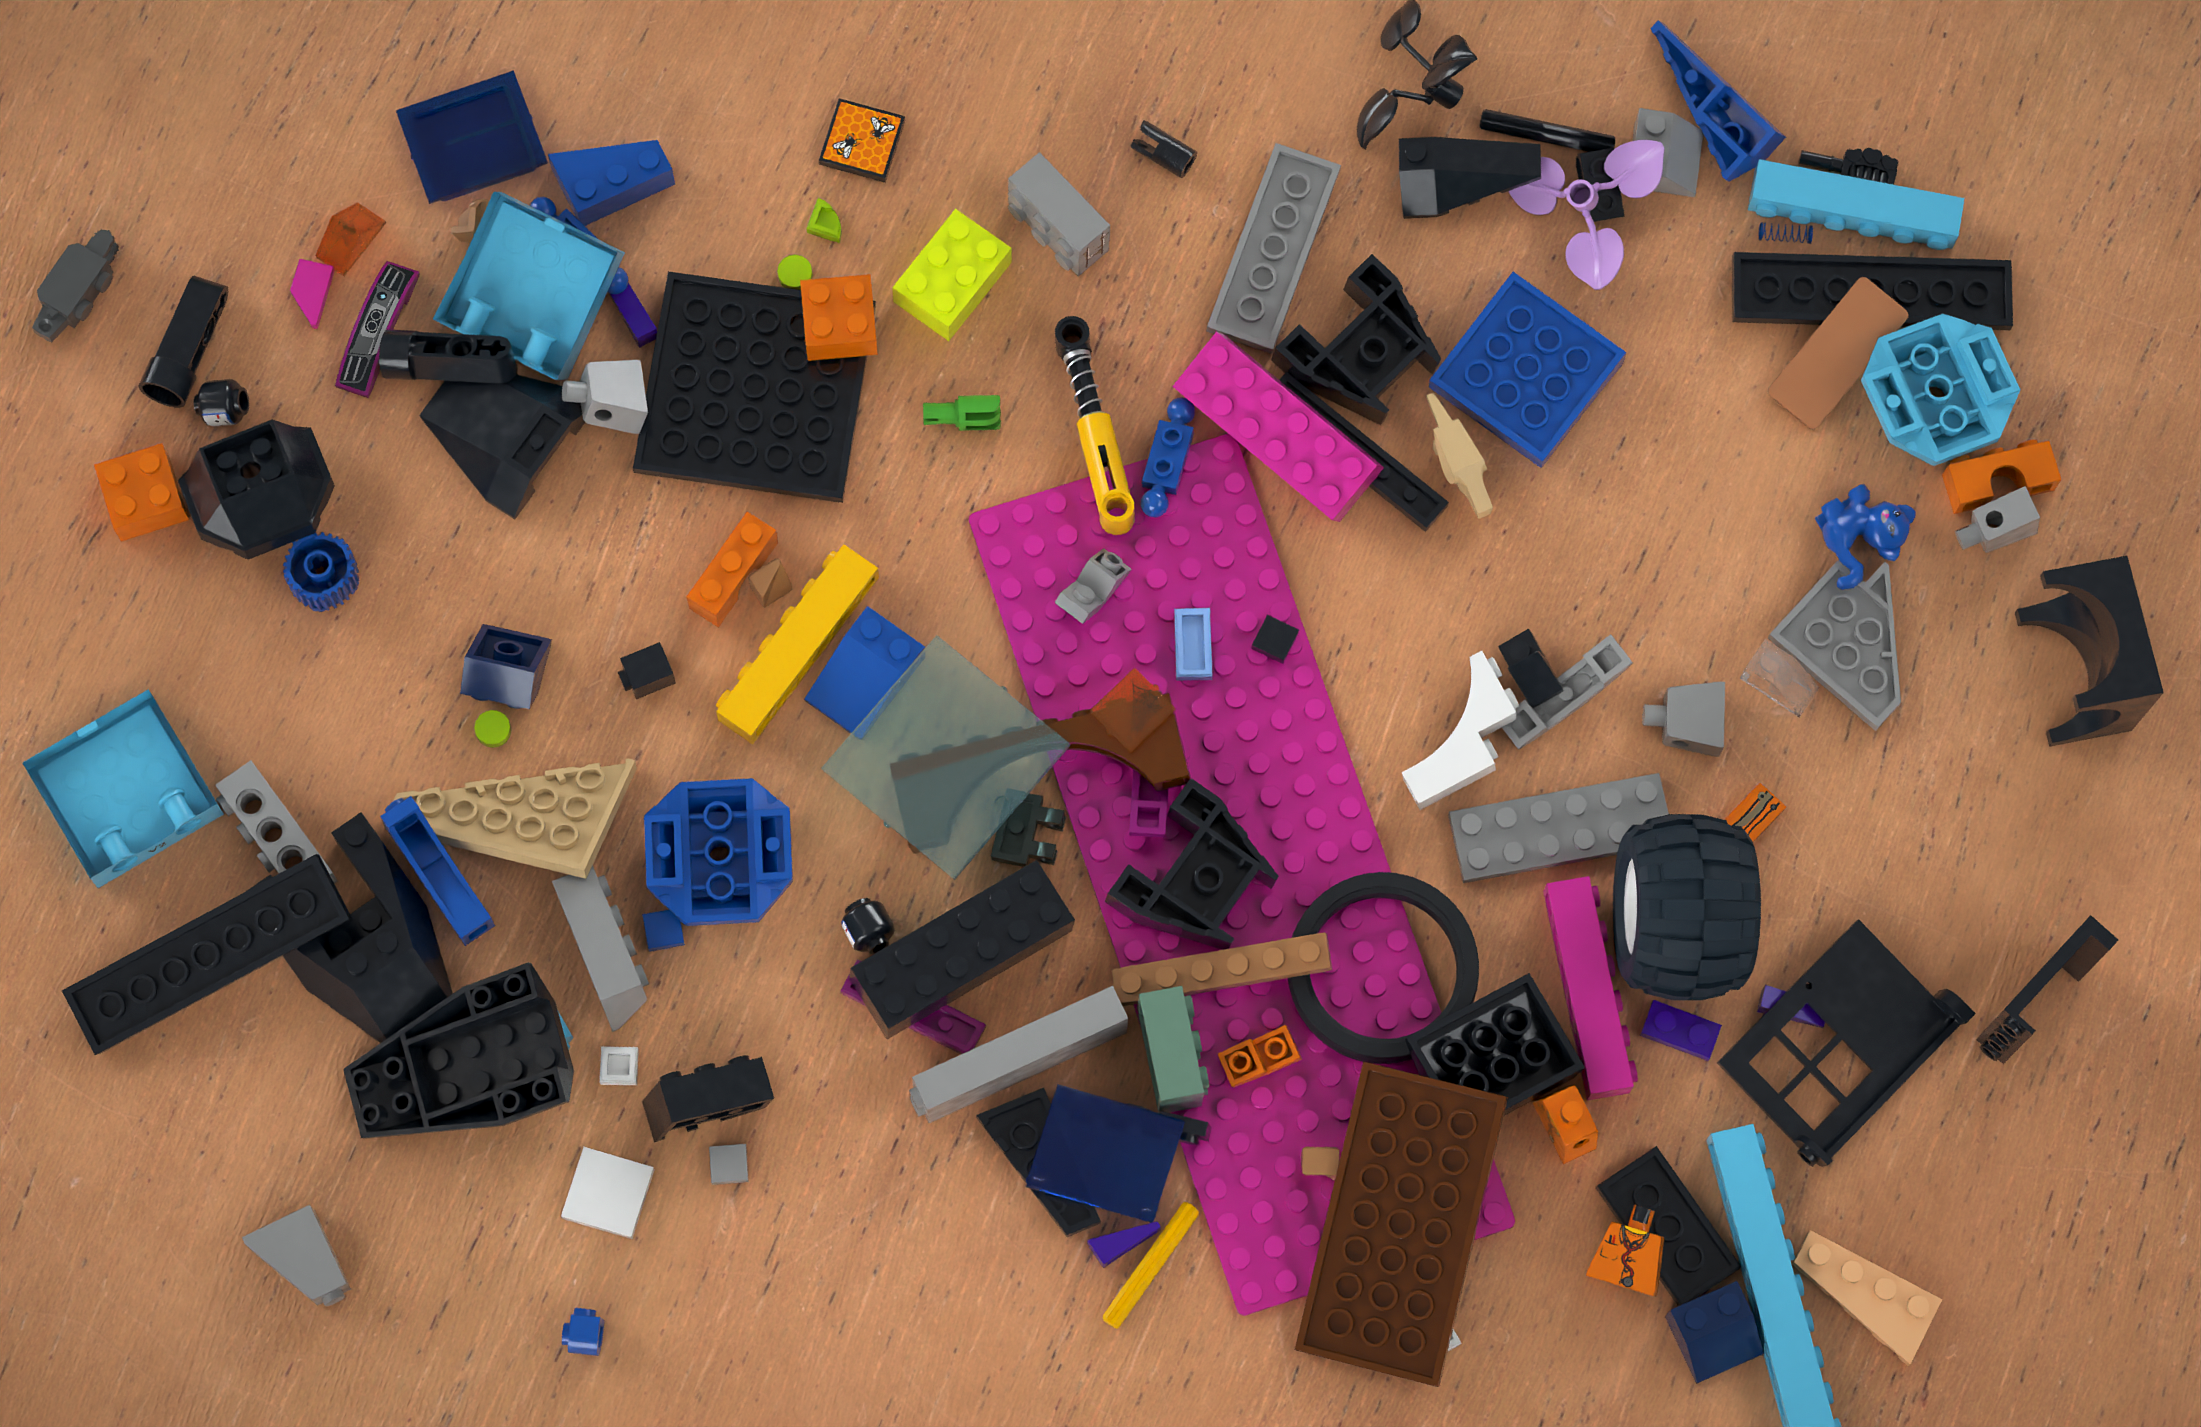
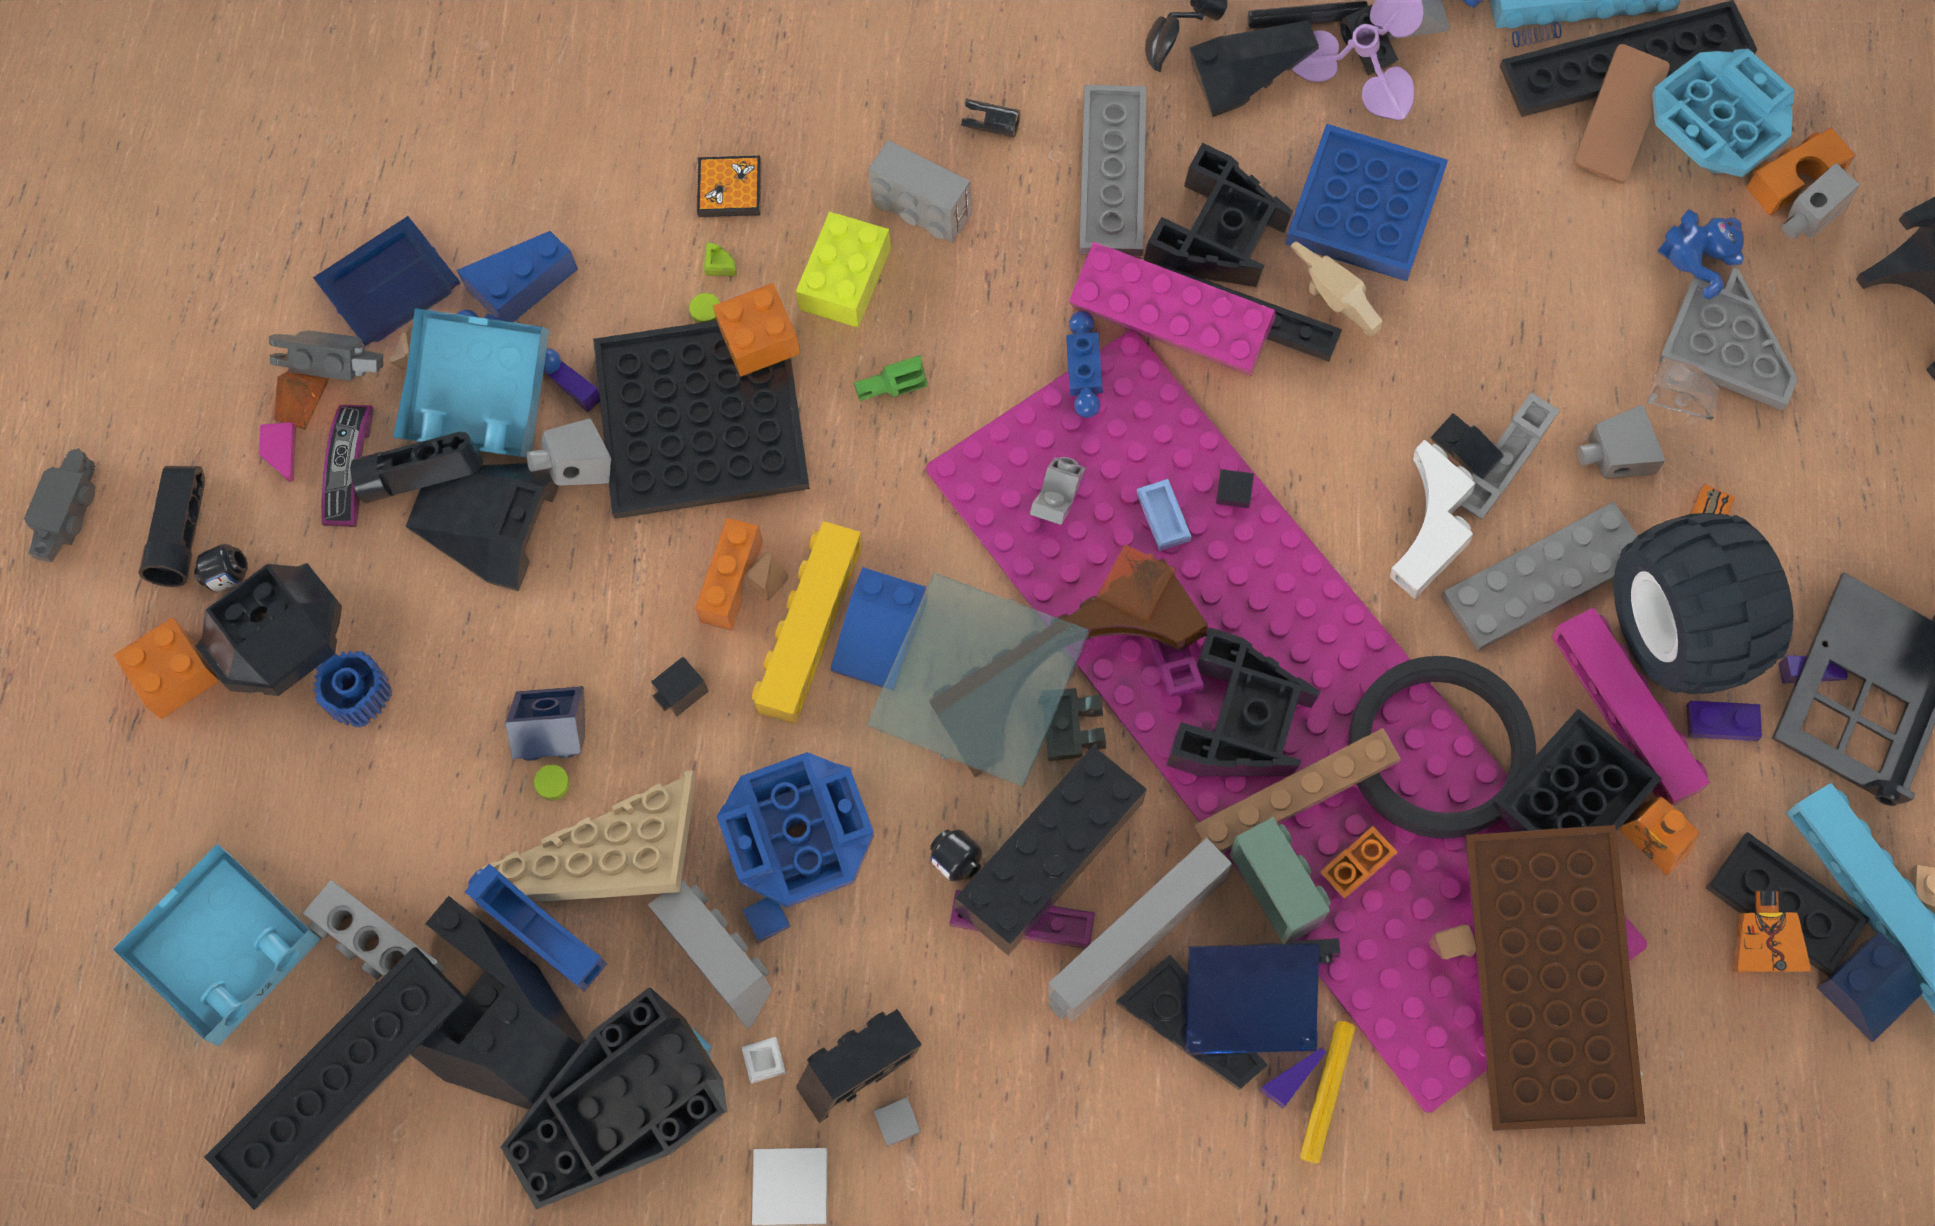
camera: 10 degrees left, 5 degrees down
(386, 204) = (324, 355): none -> dark grey hinge
(1095, 429) = (1014, 359): piece -> none

